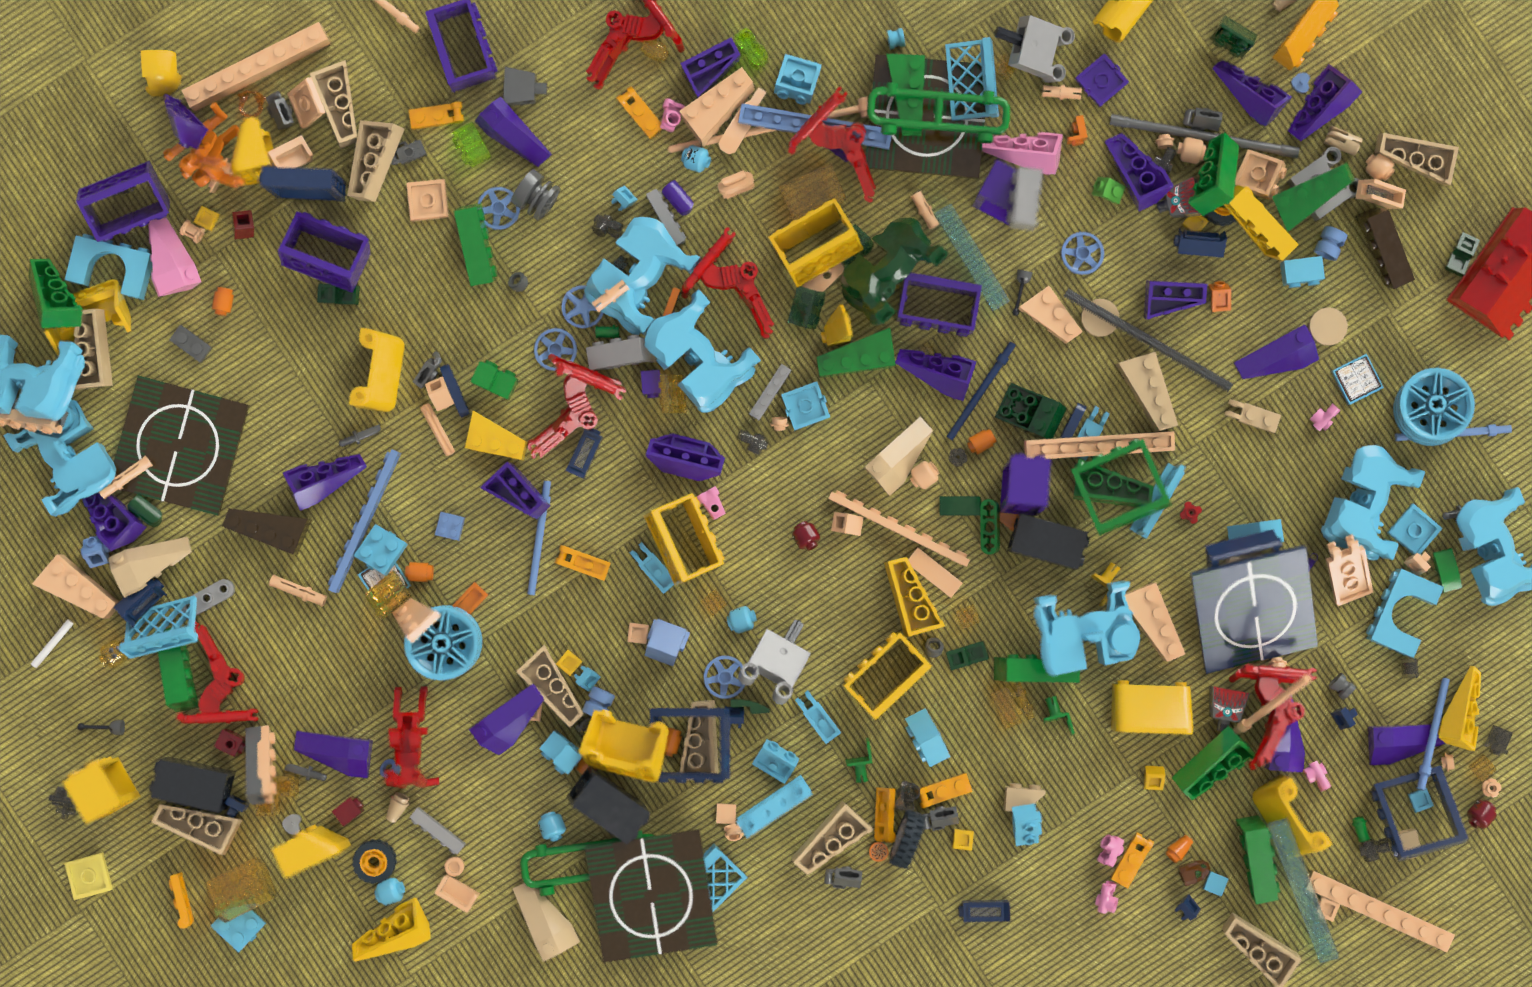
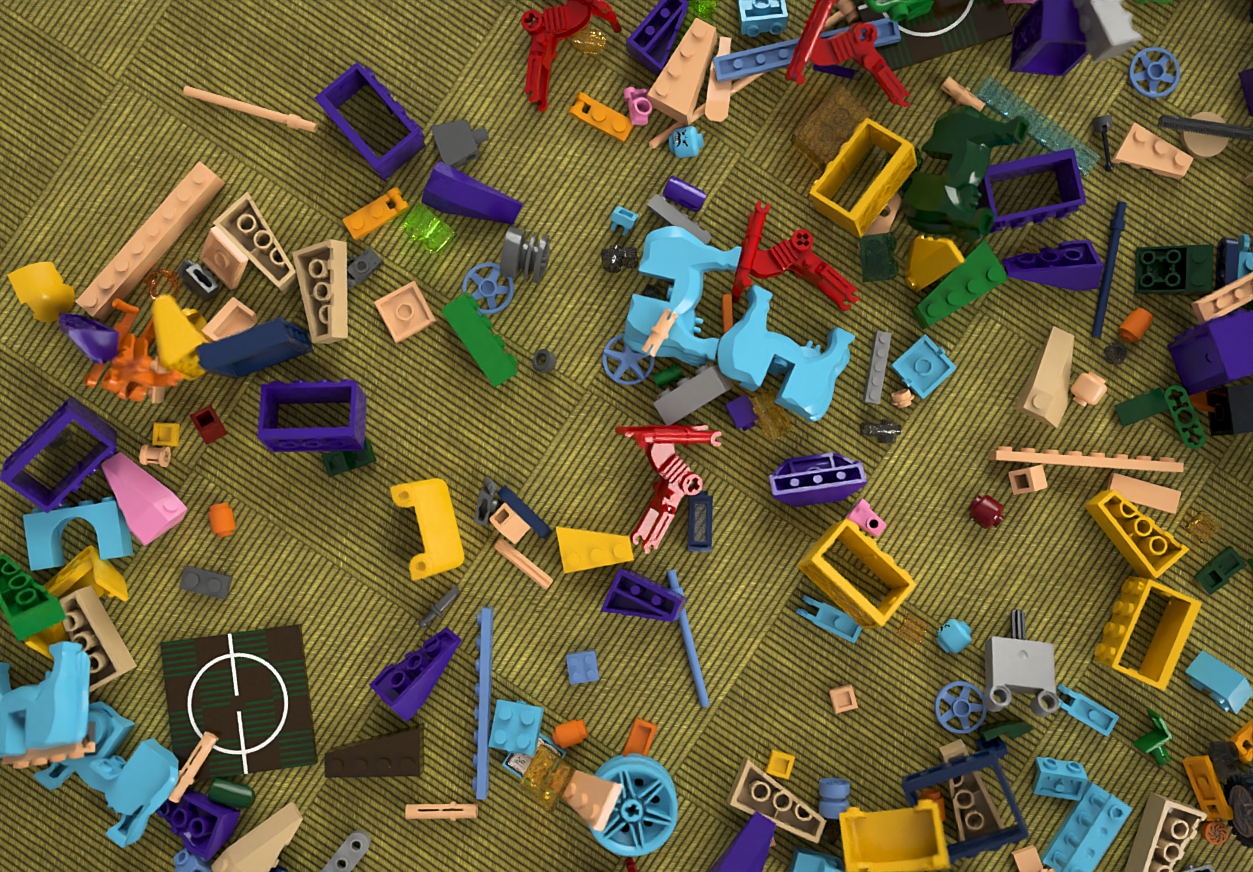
camera: 25 degrees left, 0 degrees up
(493, 380) = (565, 482): green brick -> none
(554, 347) = (616, 417): medium blue wheel -> none
(583, 563) = (749, 646): light orange plate -> none
(587, 678) = (810, 774): medium azure tile -> none
(665, 641) = (880, 697): medium blue plate -> none
(736, 184) = (741, 153): light nougat piece -> none
(932, 652) = (1174, 582): dark grey piece -> none

